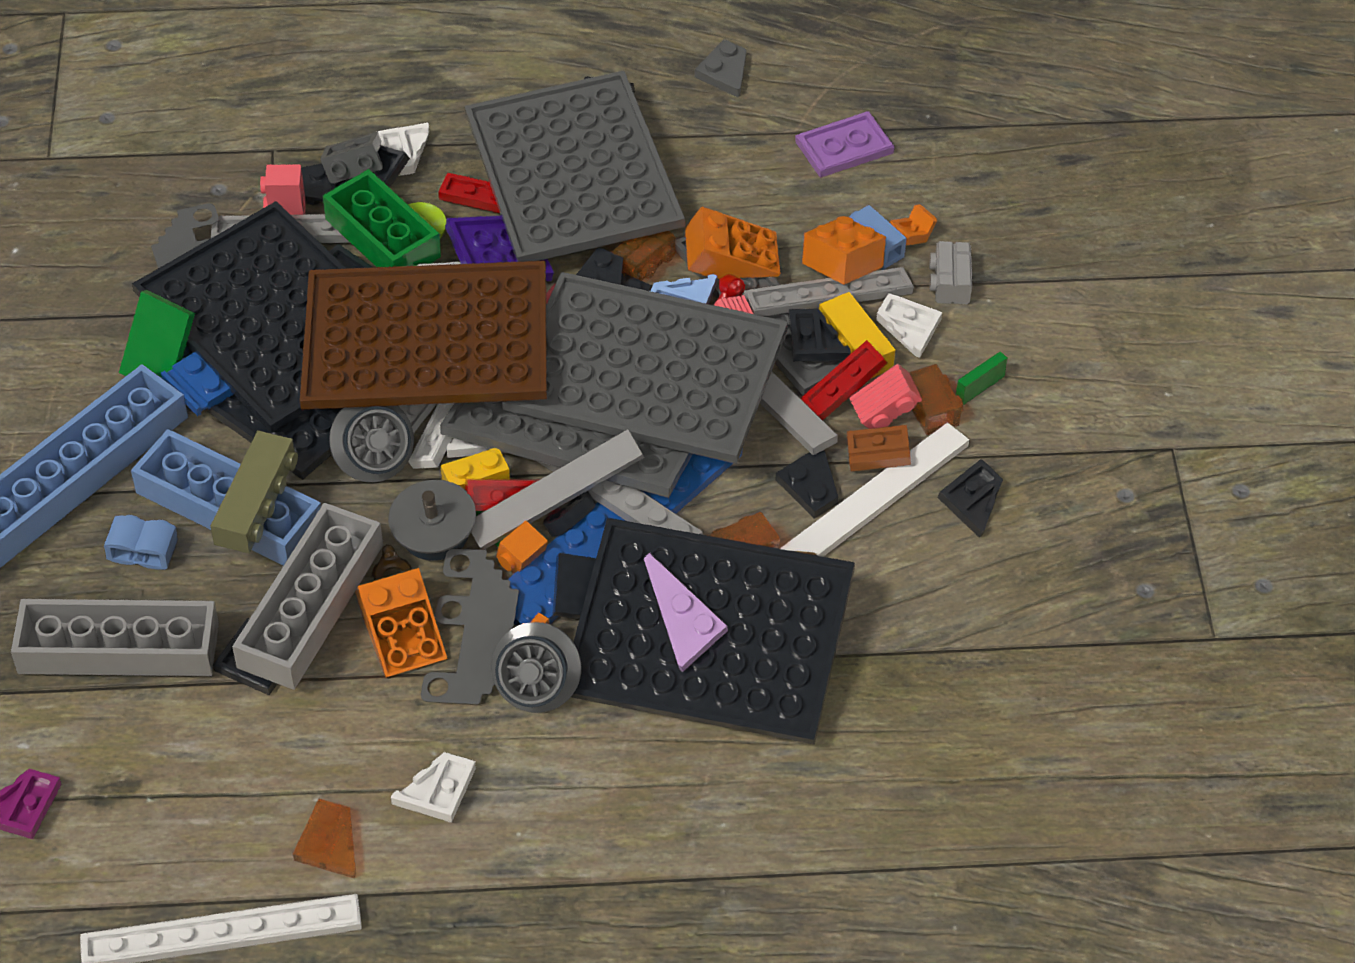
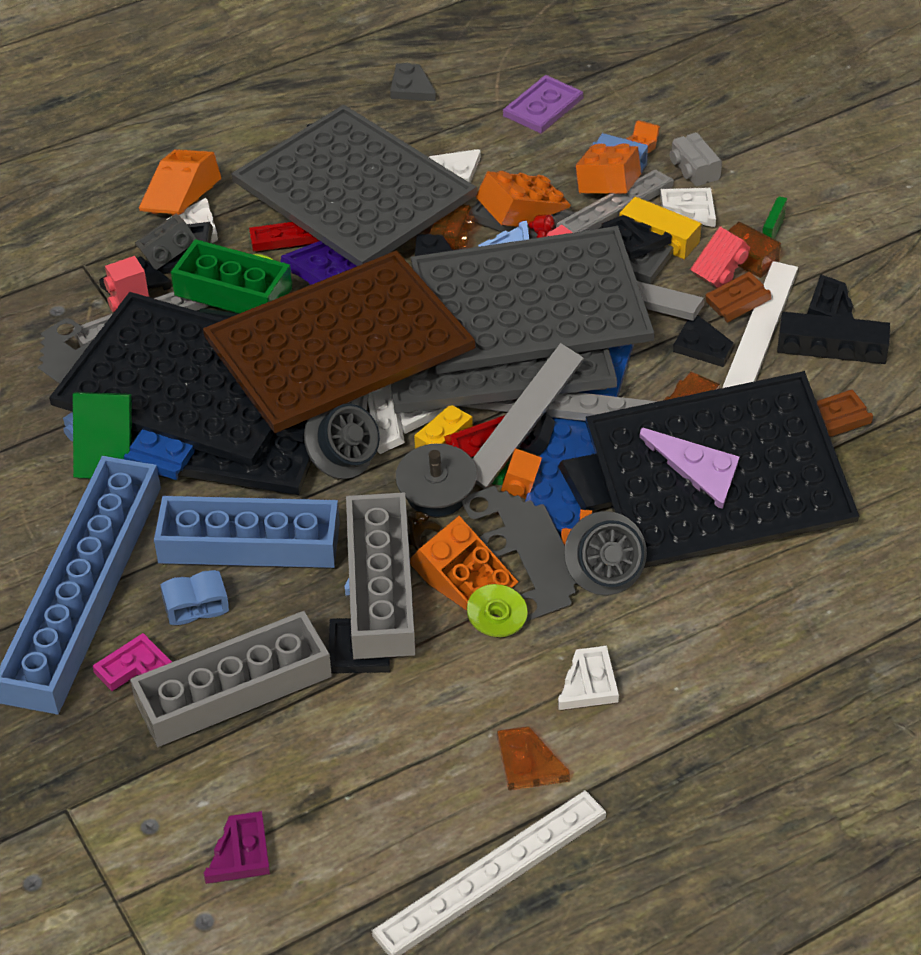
camera: 25 degrees left, 5 degrees down
(48, 579) = (129, 661): none -> dark pink plate
(254, 492) = (280, 511): olive brick -> none
(400, 666) = (500, 601): none -> lime dish
(411, 96) = (180, 181): none -> orange slope
(699, 182) = (460, 163): none -> white wing
(844, 380) = (680, 255): red plate -> none
(885, 620) = (843, 412): none -> dark orange plate
(944, 535) = (833, 337): none -> black brick

